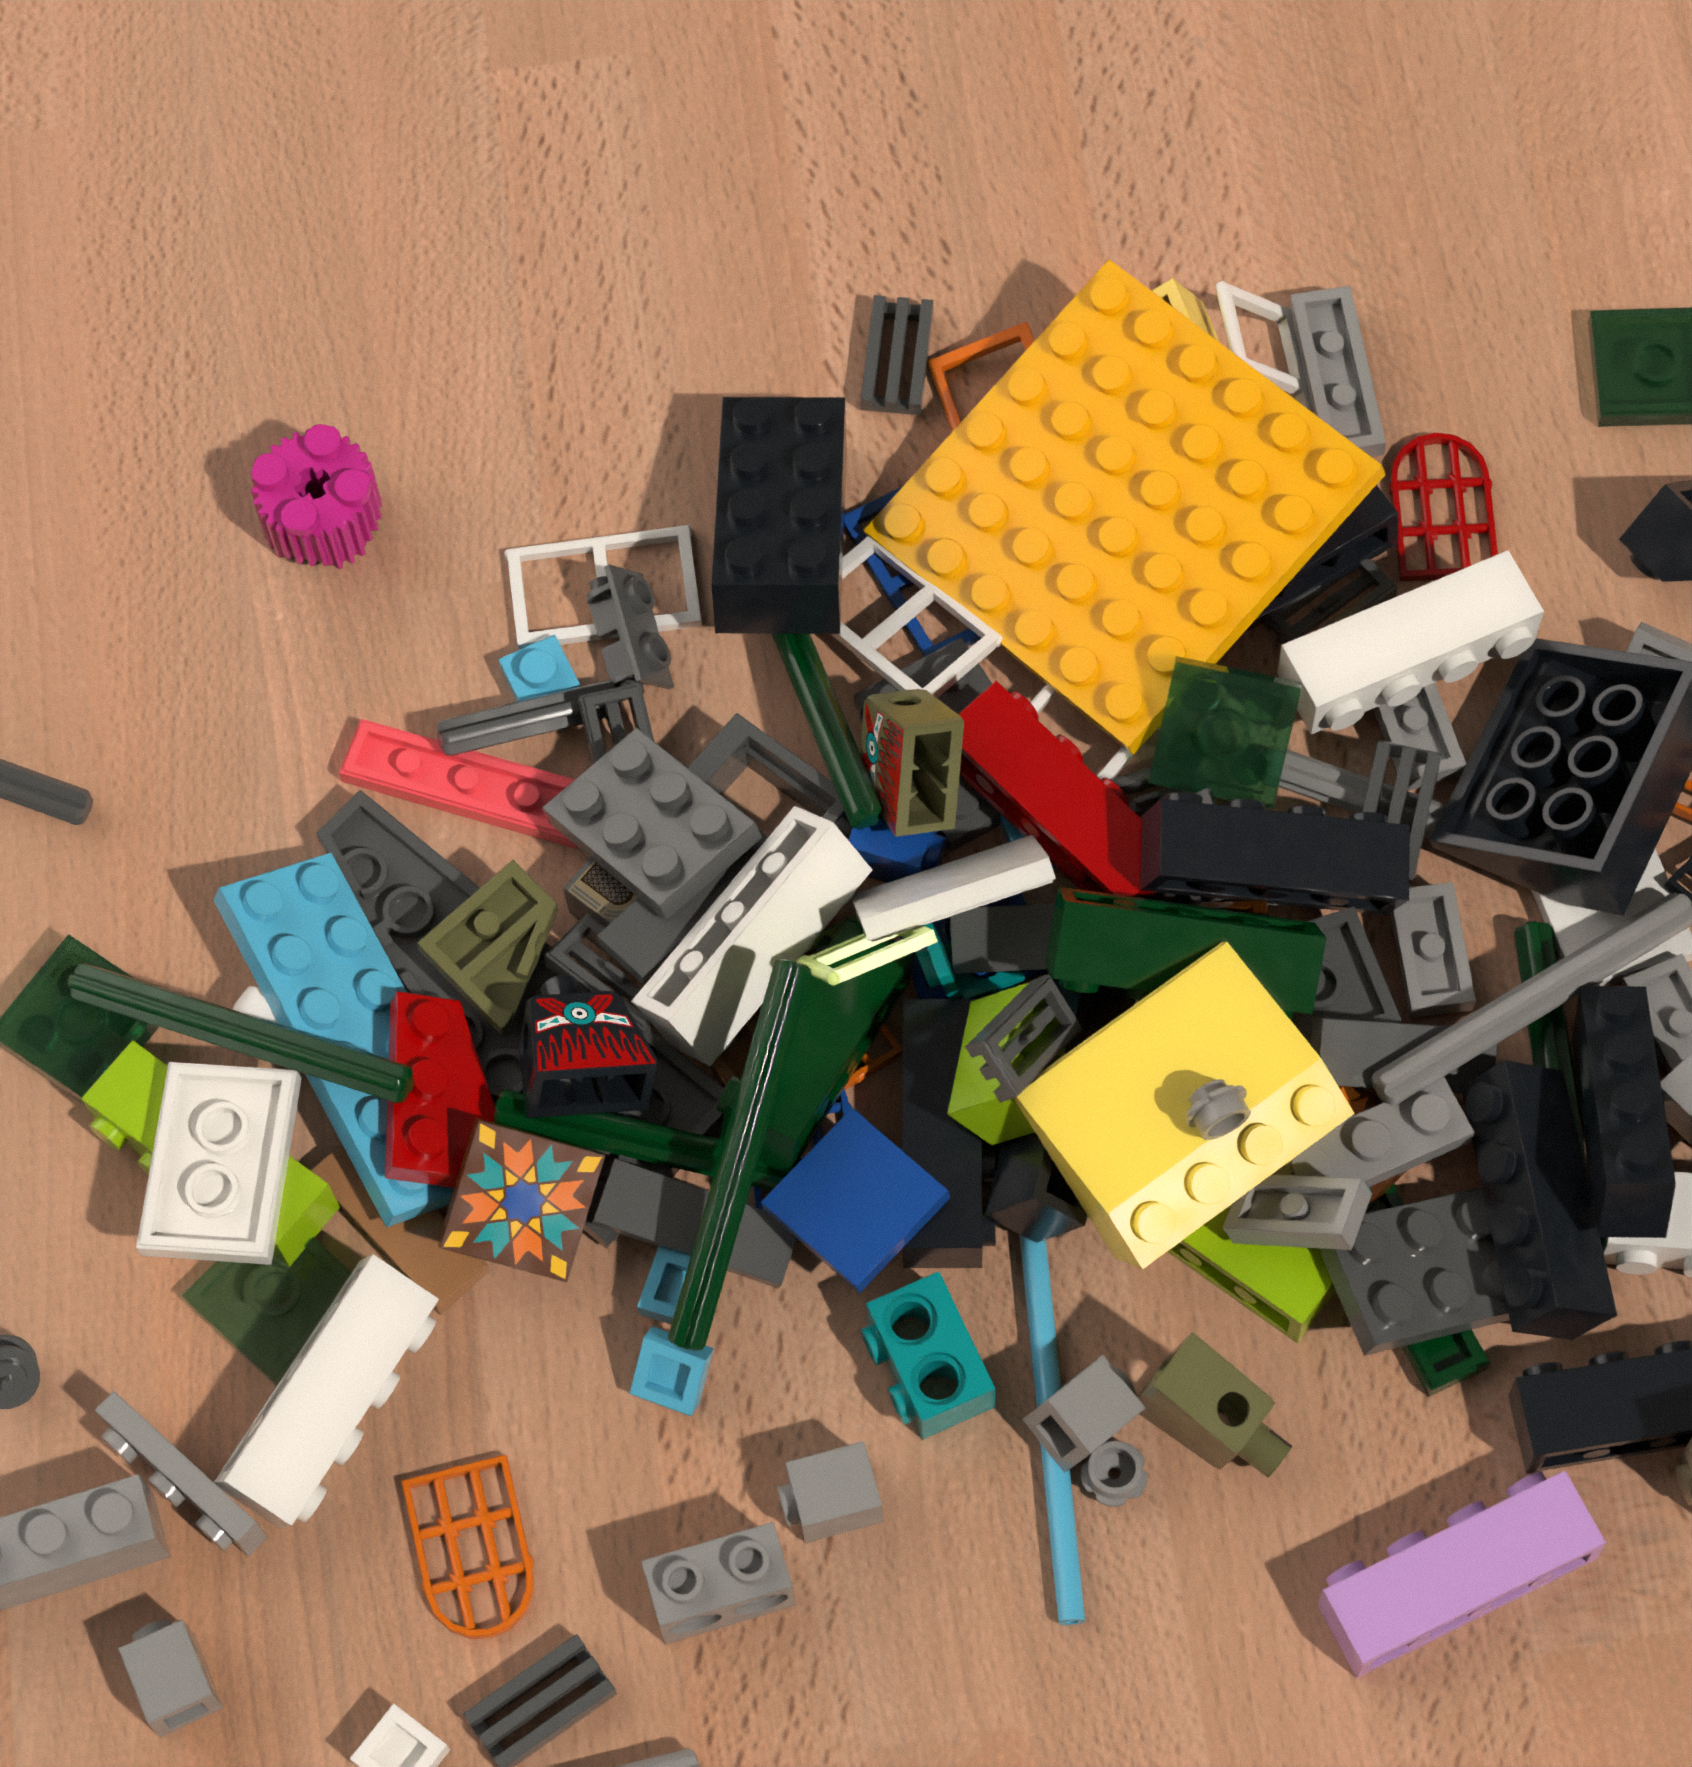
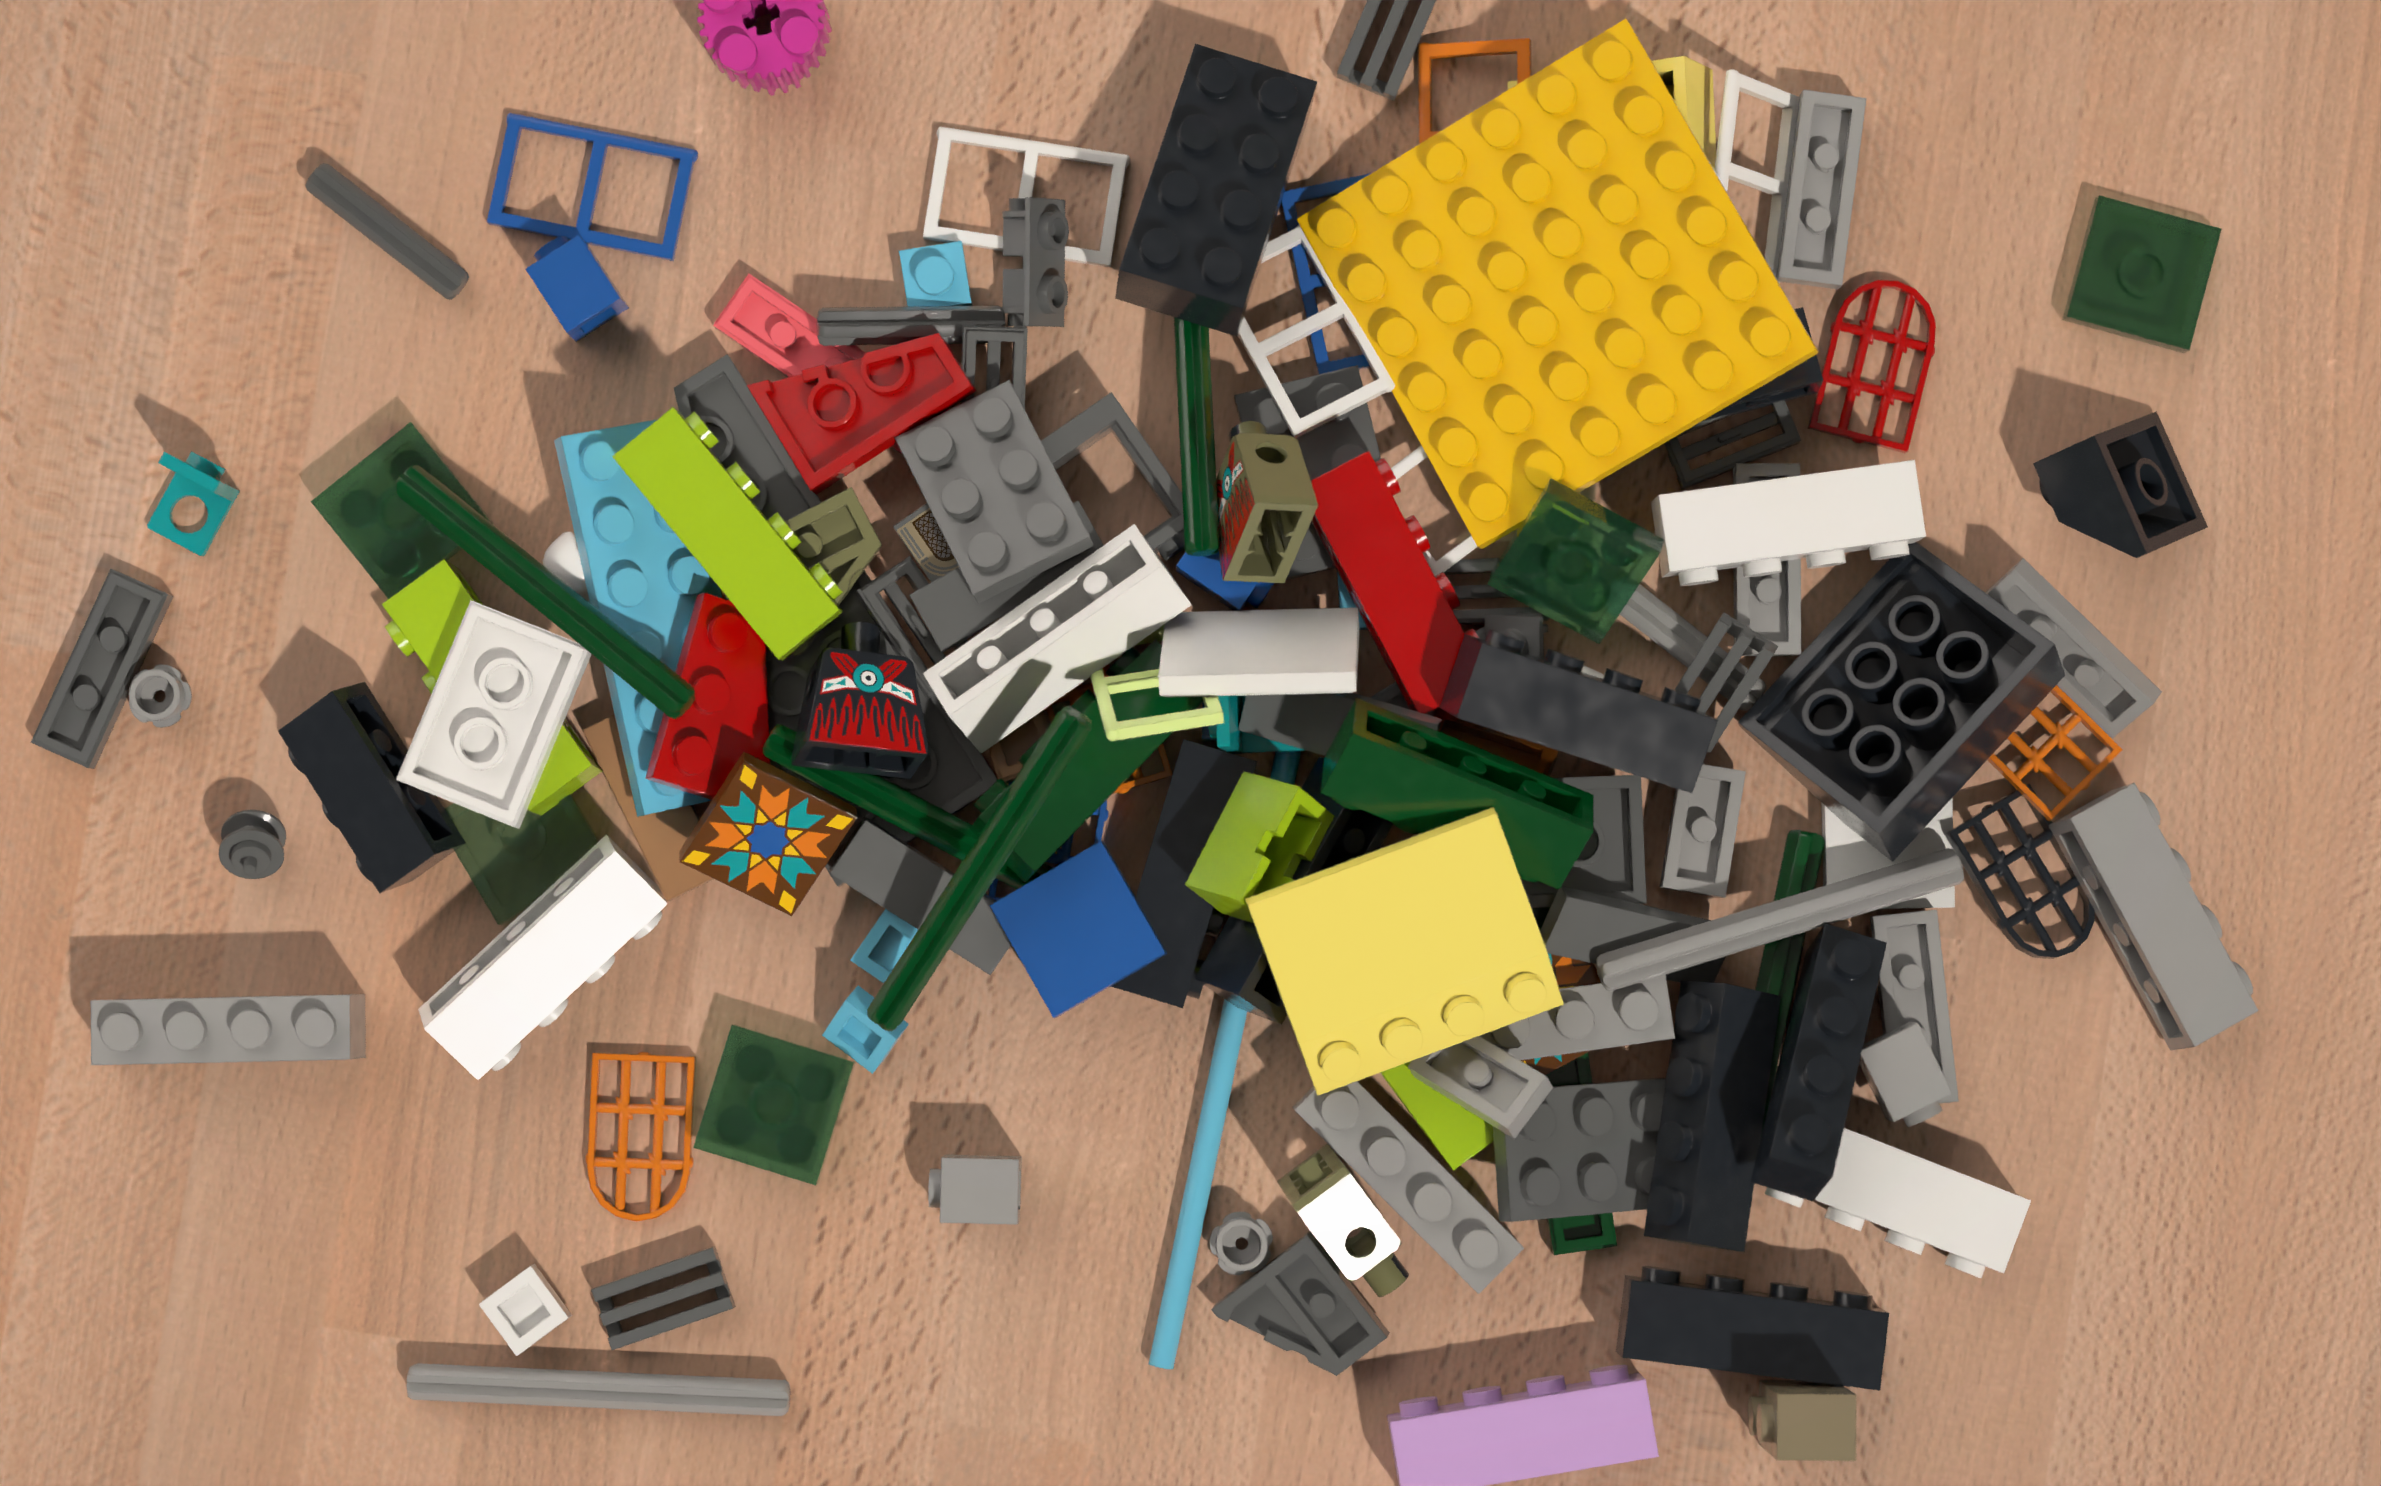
camera: 15 degrees right, 20 degrees up
(110, 1288) = (353, 766): none -> black brick
(169, 1676) = (336, 1177): light grey brick -> none
(178, 1477) = (386, 991): light grey plate -> none
(192, 732) = (600, 141): none -> blue window
(199, 772) = (575, 286): none -> blue brick
(407, 922) = (728, 533): none -> lime brick
(497, 802) = (855, 409): none -> red wing
(600, 1472) = (774, 1104): none -> clear green plate
(719, 1583) = (851, 1244): light grey brick -> none
(941, 1352) = (1120, 1085): teal brick -> none
(998, 1059) = (1271, 838): dark grey tile -> none
(1084, 1413) = (1230, 1188): light grey brick -> none
(1199, 1515) = (1306, 1307): none -> dark grey wing
(1217, 1109) = (1430, 982): light grey plate -> none
(1292, 1364) = (1411, 1181): none -> light grey brick

